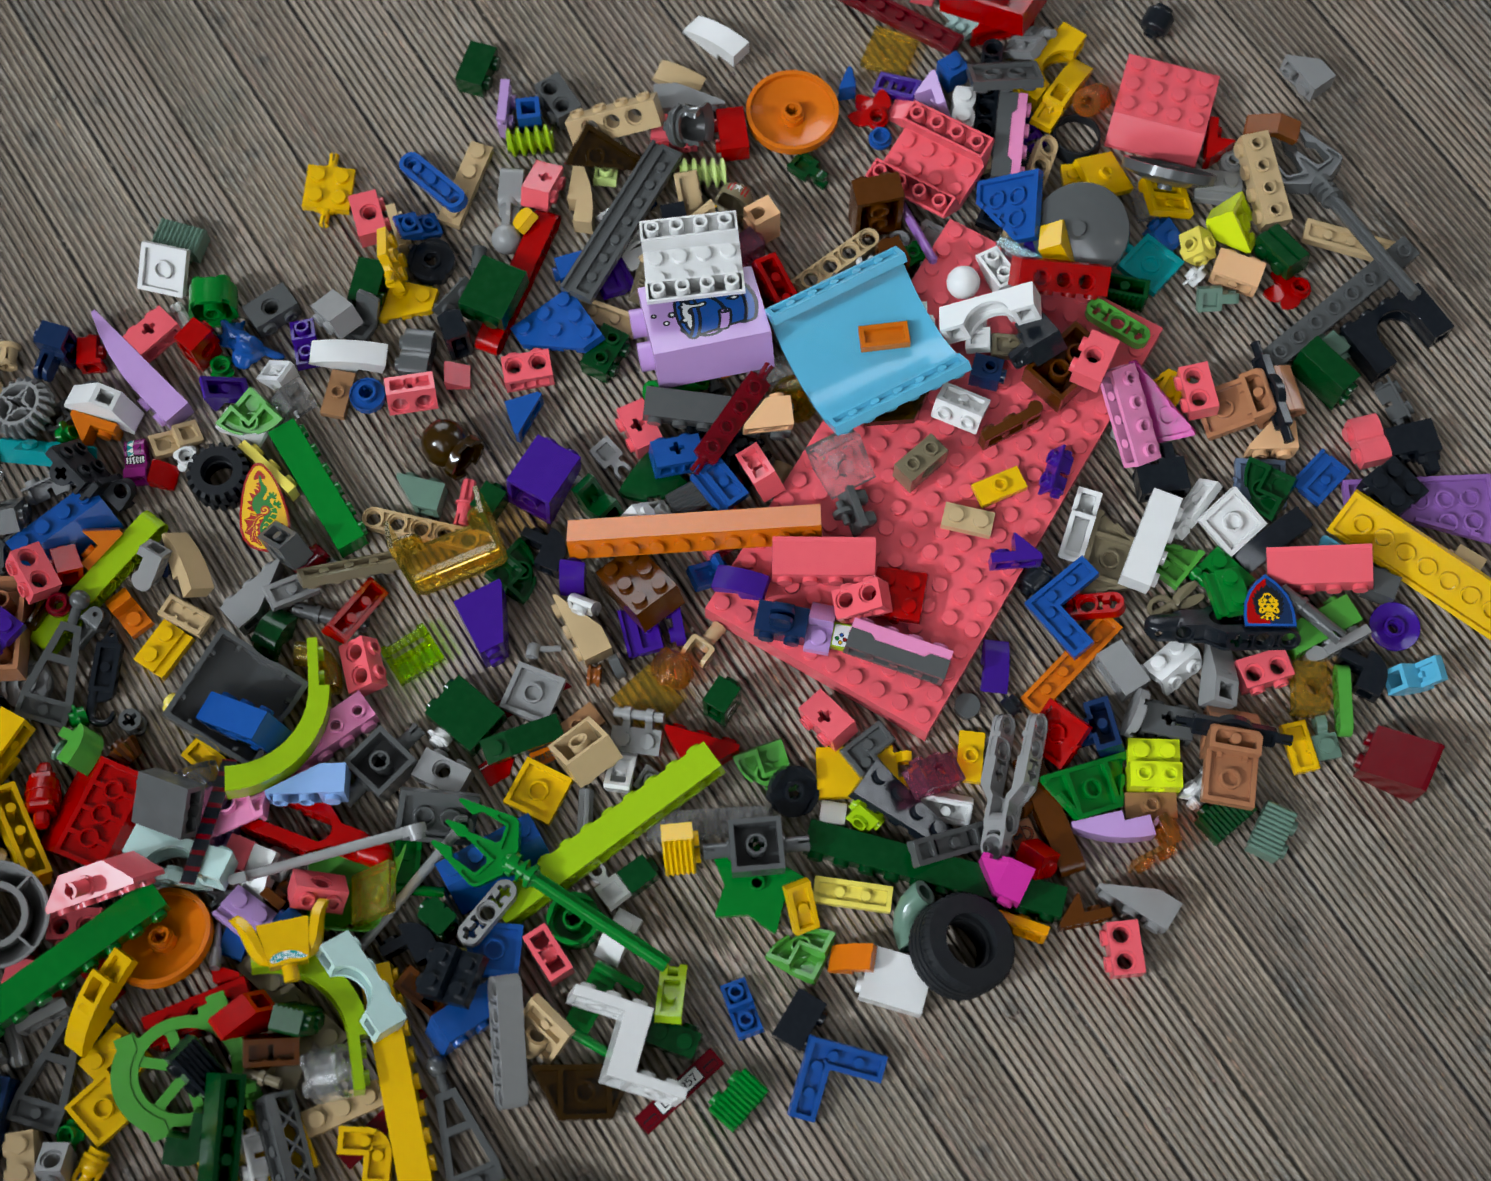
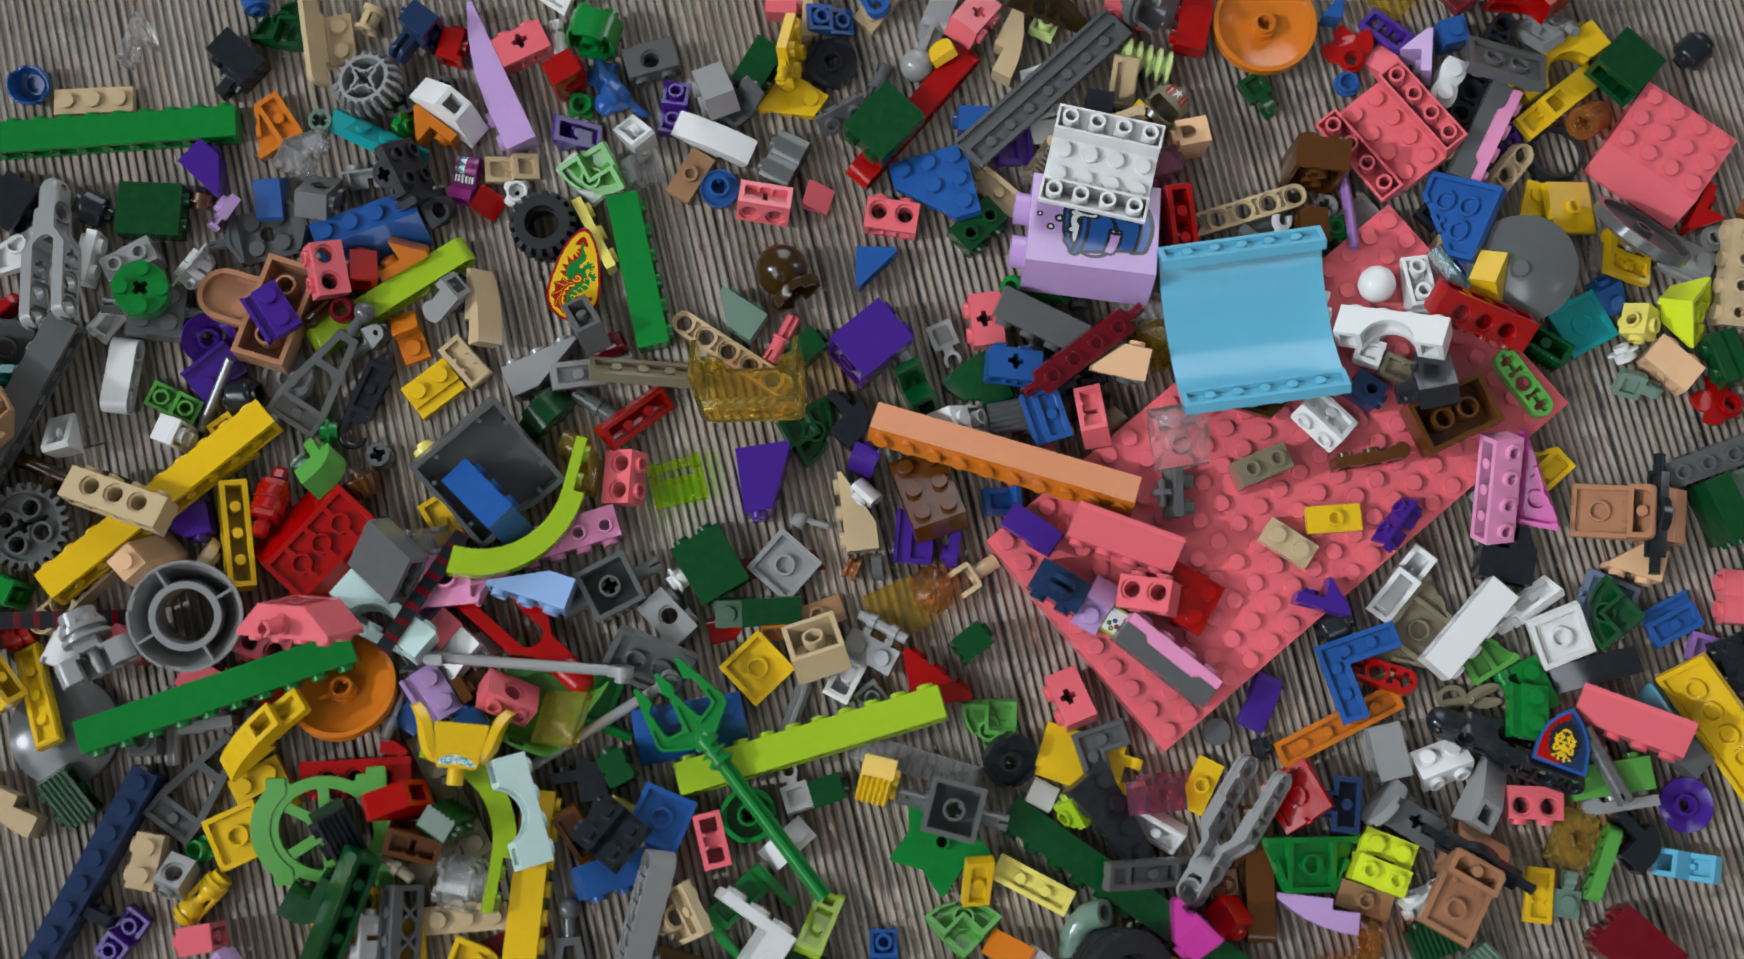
camera: 15 degrees right, 10 degrees up
(455, 334) = (830, 154): black brick -> none
(469, 924) = (643, 785): light grey beam -> none
(884, 336) = (1272, 317): orange tile -> none
(1088, 373) = (1496, 416): coral brick -> none
(1105, 49) = (1625, 67): none -> dark green brick
(1202, 390) = (1585, 486): coral brick -> none

